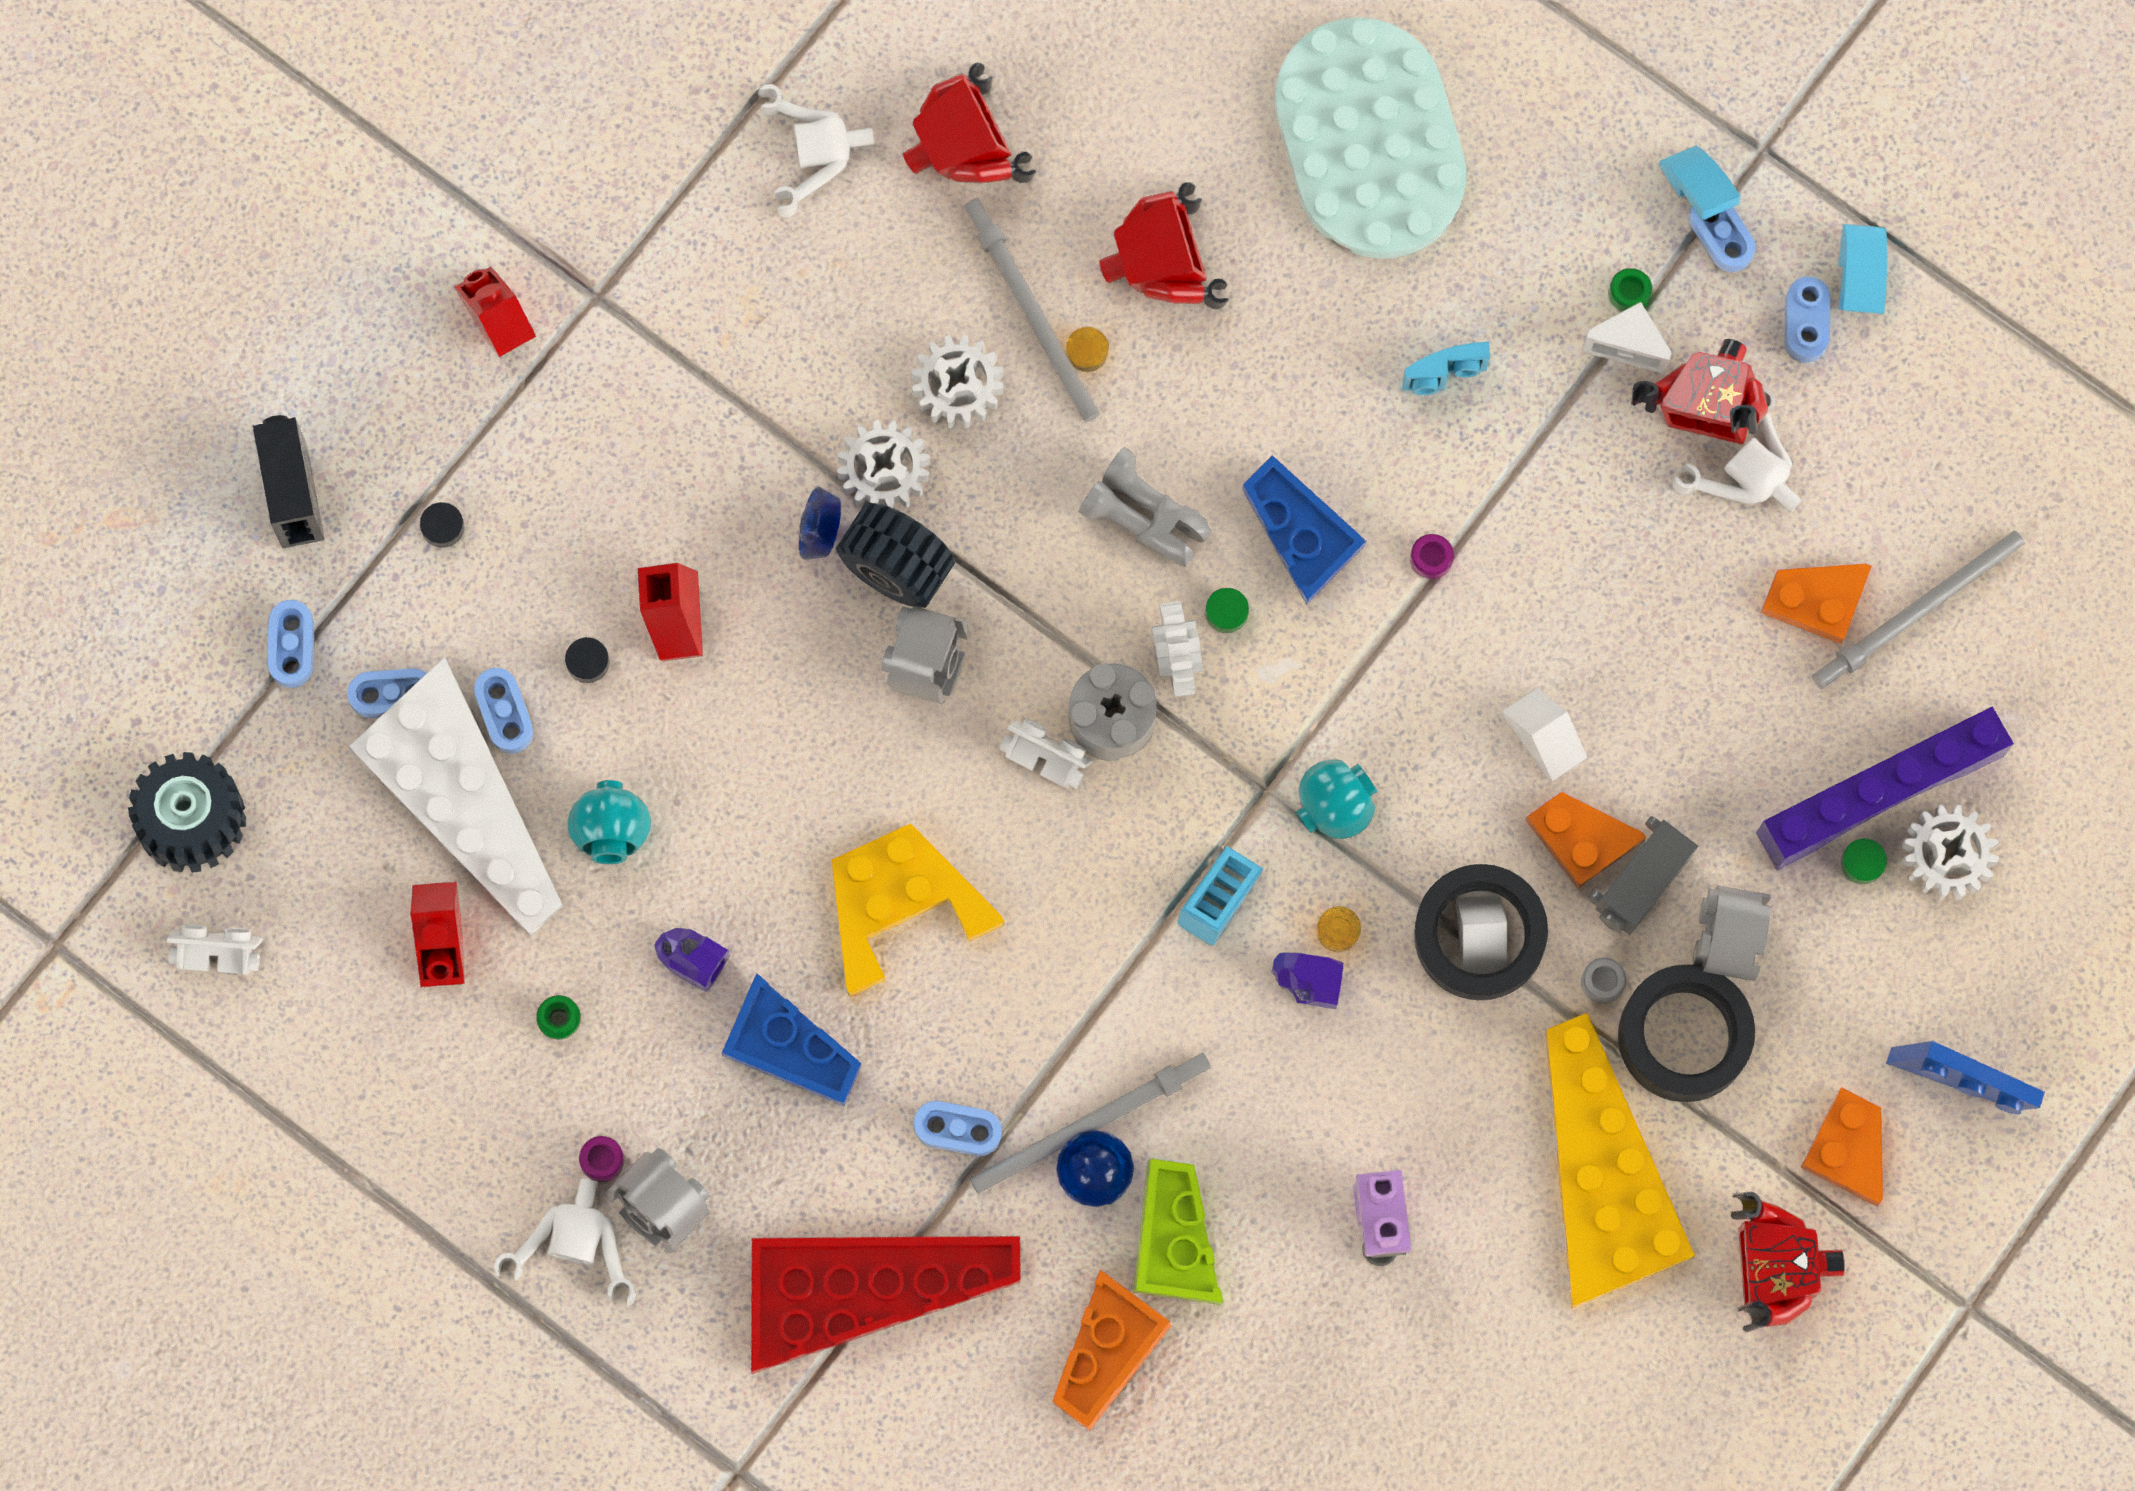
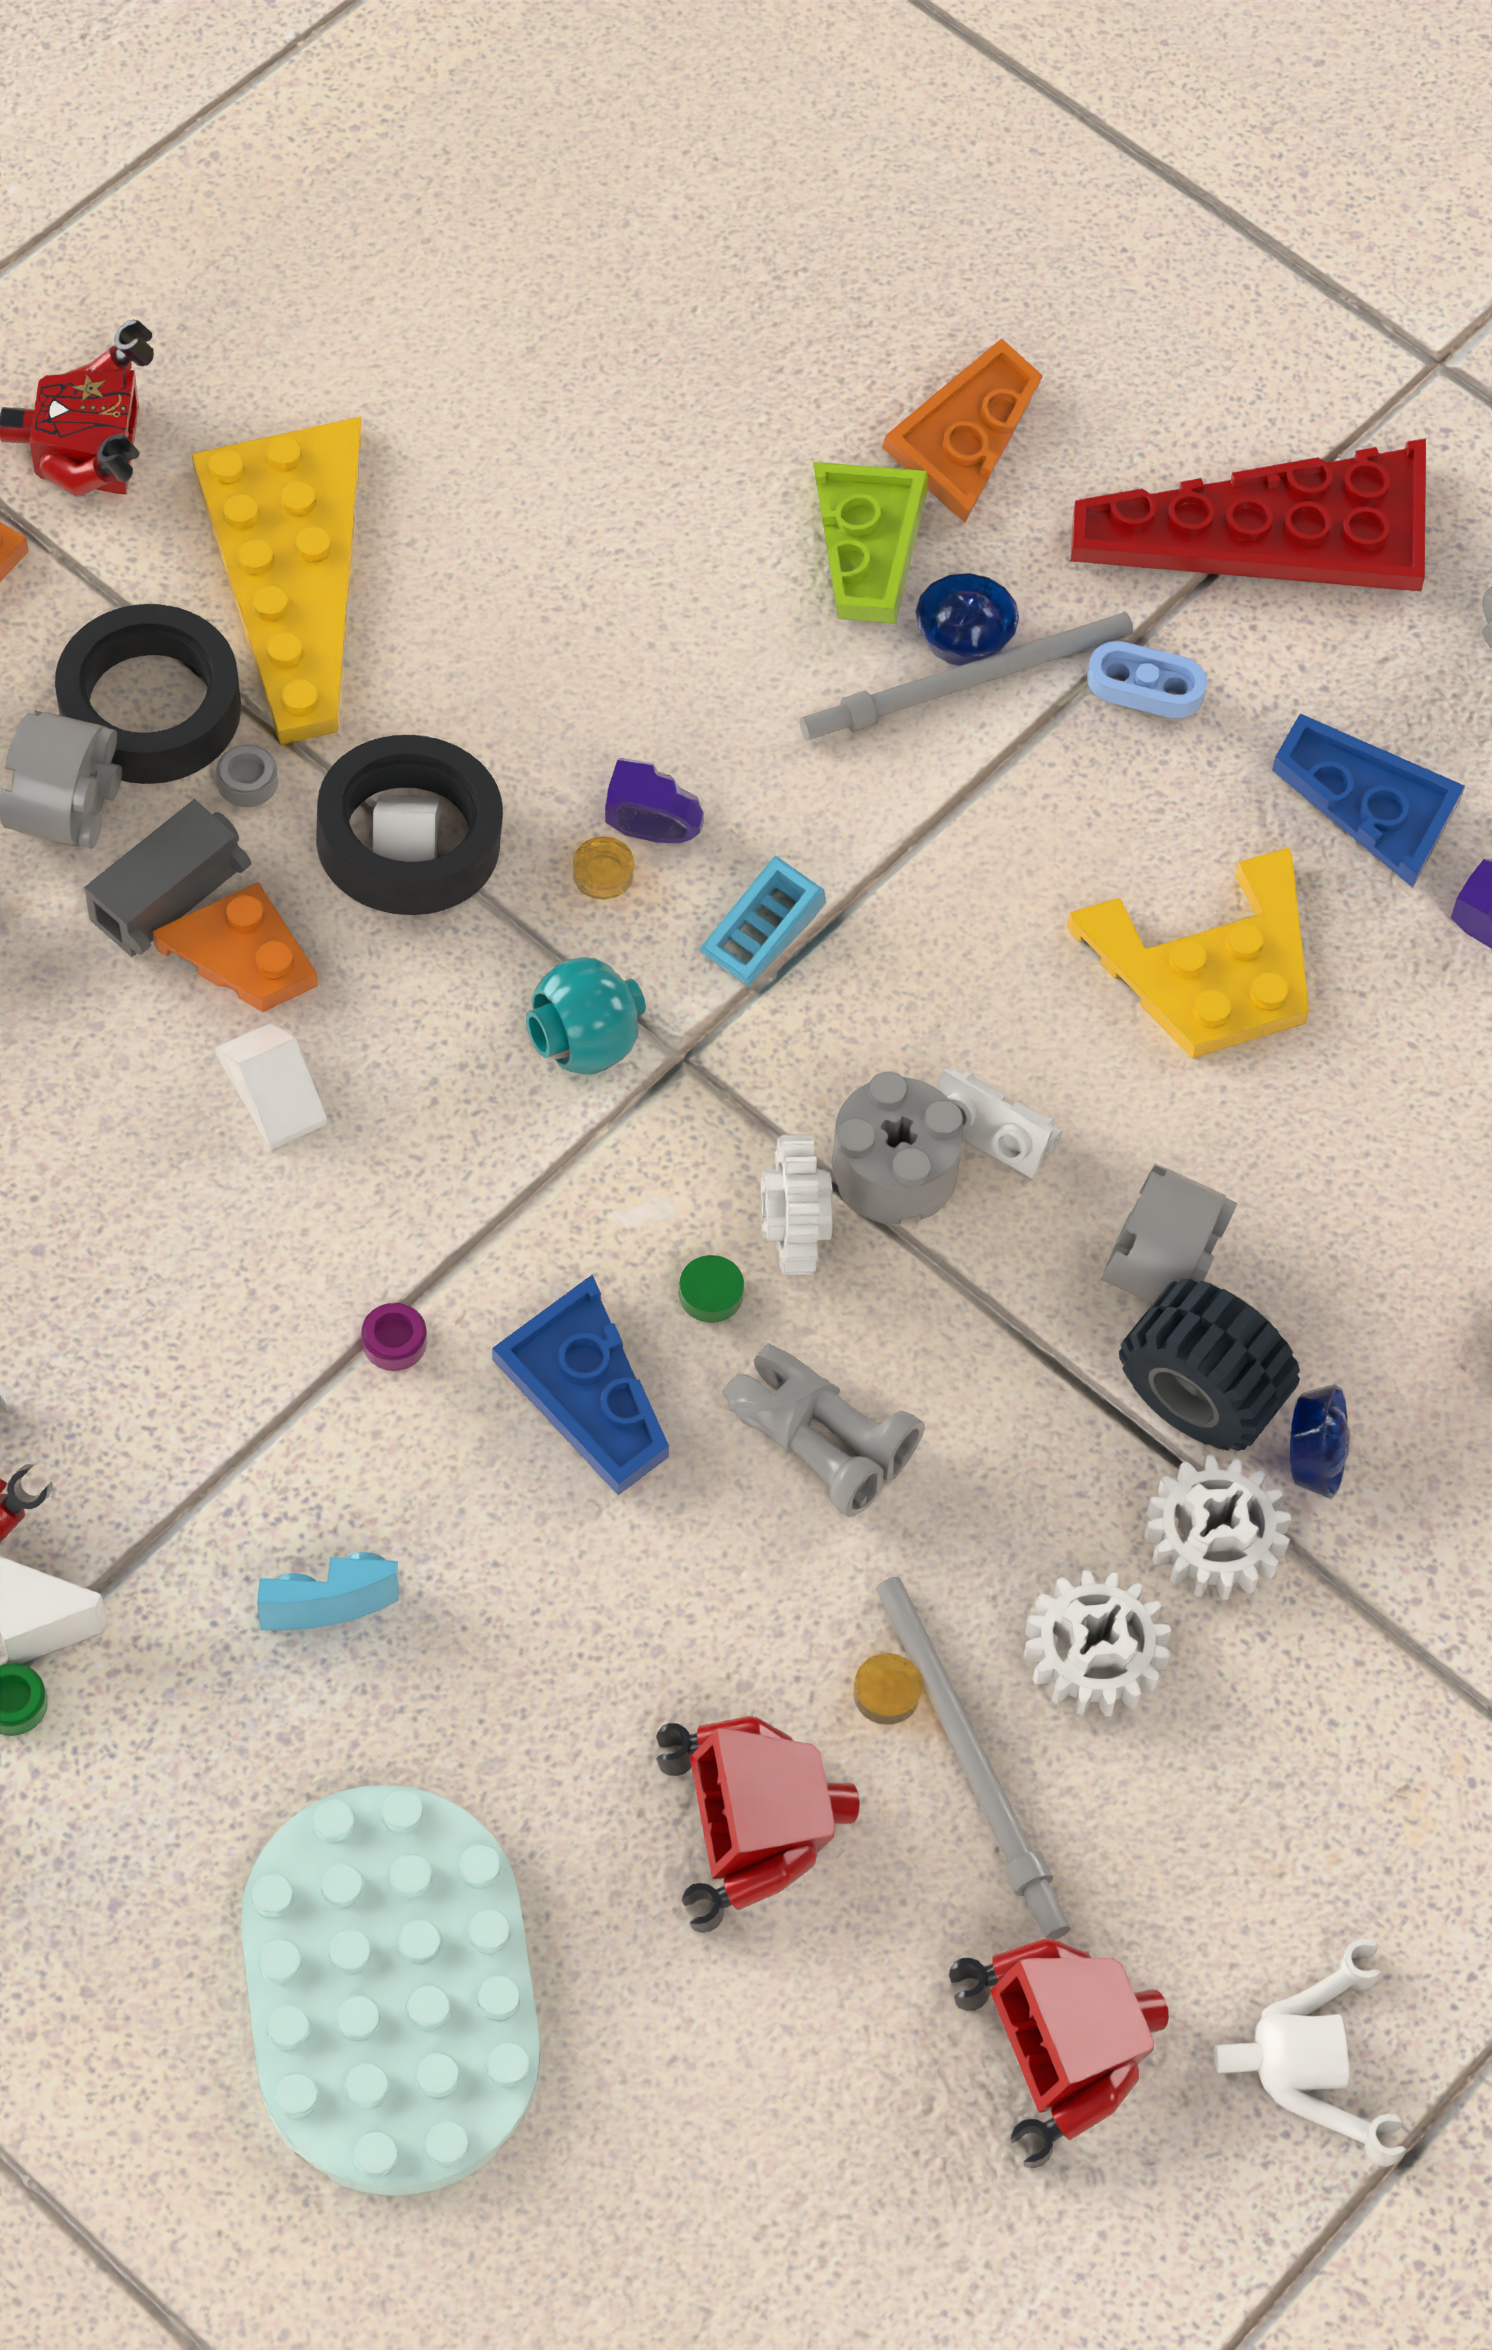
camera: 175 degrees left, 15 degrees down
(1382, 1215) = (598, 500): lavender hips -> none

